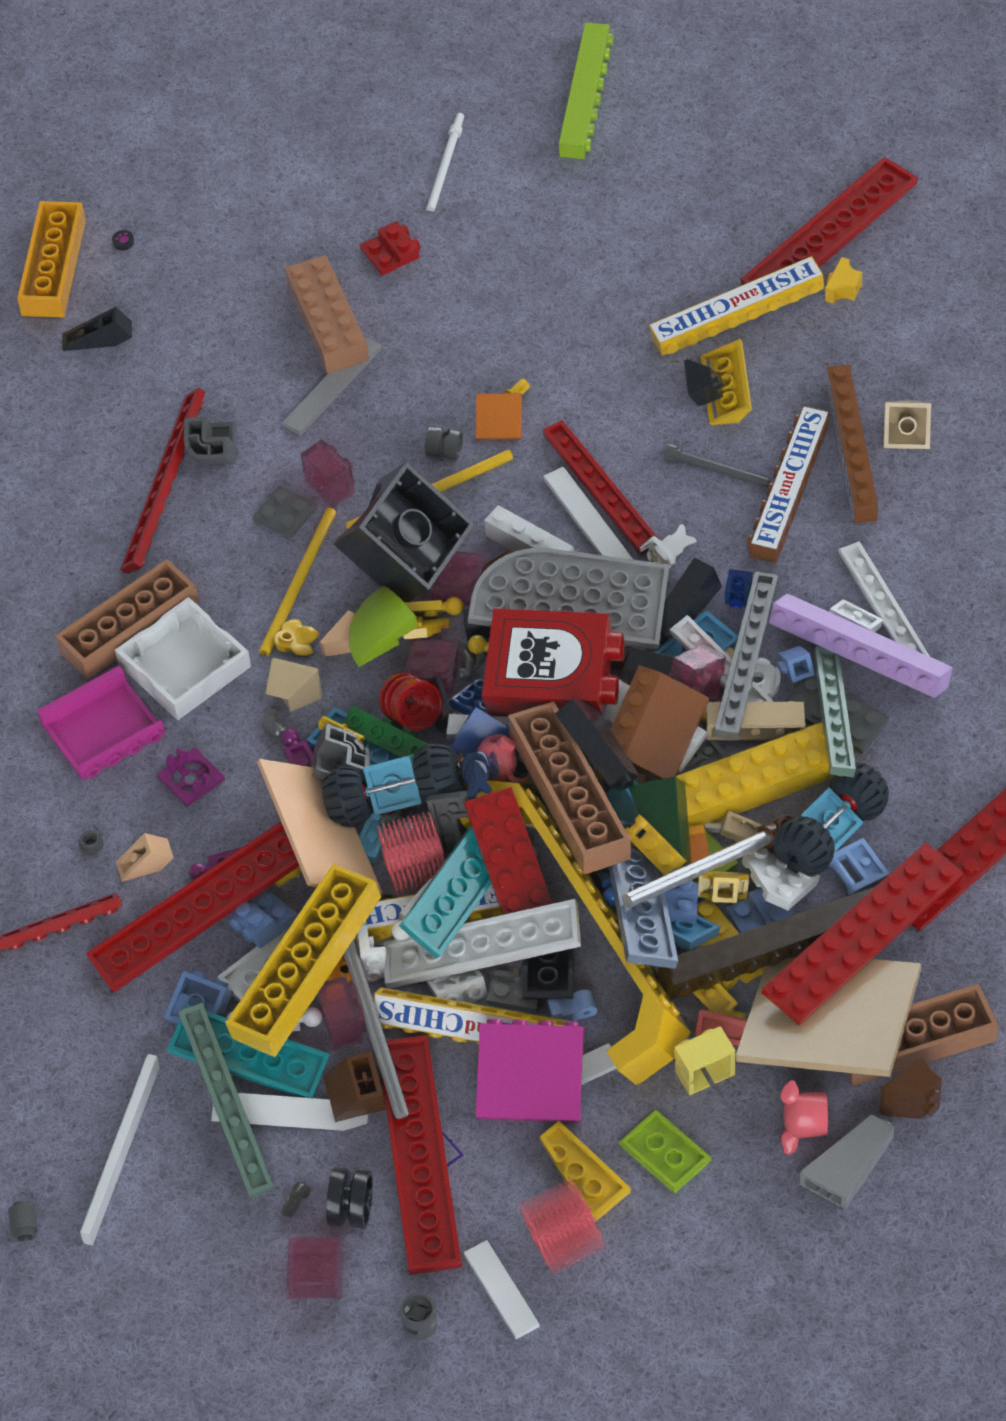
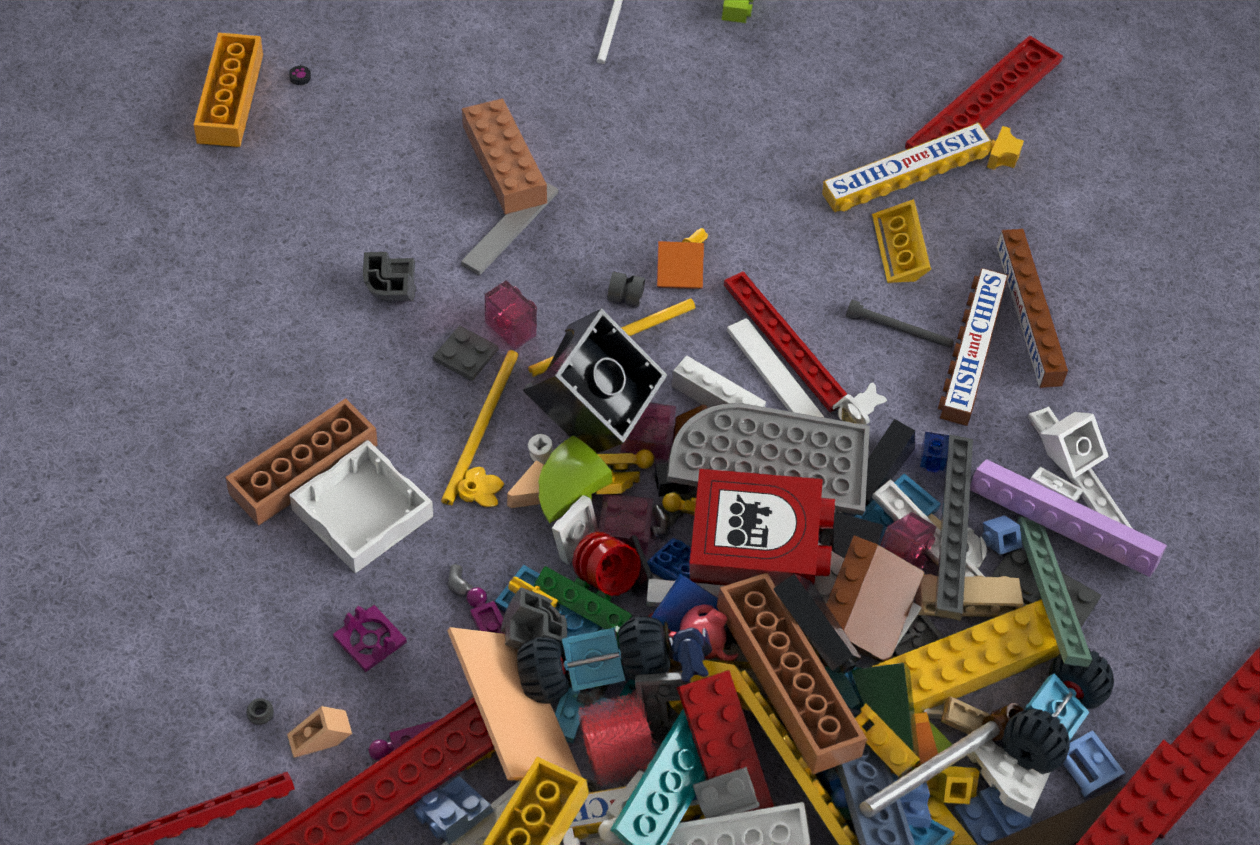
camera: 10 degrees left, 0 degrees up
(100, 723) = (272, 575): dark pink panel -> none
(101, 331) = (277, 162): black slope -> none
(161, 485) = (338, 321): red plate -> none
(294, 683) = (480, 538): tan slope -> none
(351, 593) = (544, 452): none -> white wheel
(380, 667) = (573, 527): none -> white plate
(391, 248) = (564, 96): red plate -> none
(507, 895) = (726, 794): none -> light grey plate
(702, 383) = (879, 240): black slope -> none
(877, 575) = (1075, 443): none -> white slope
(907, 424) = (1083, 291): tan slope -> none

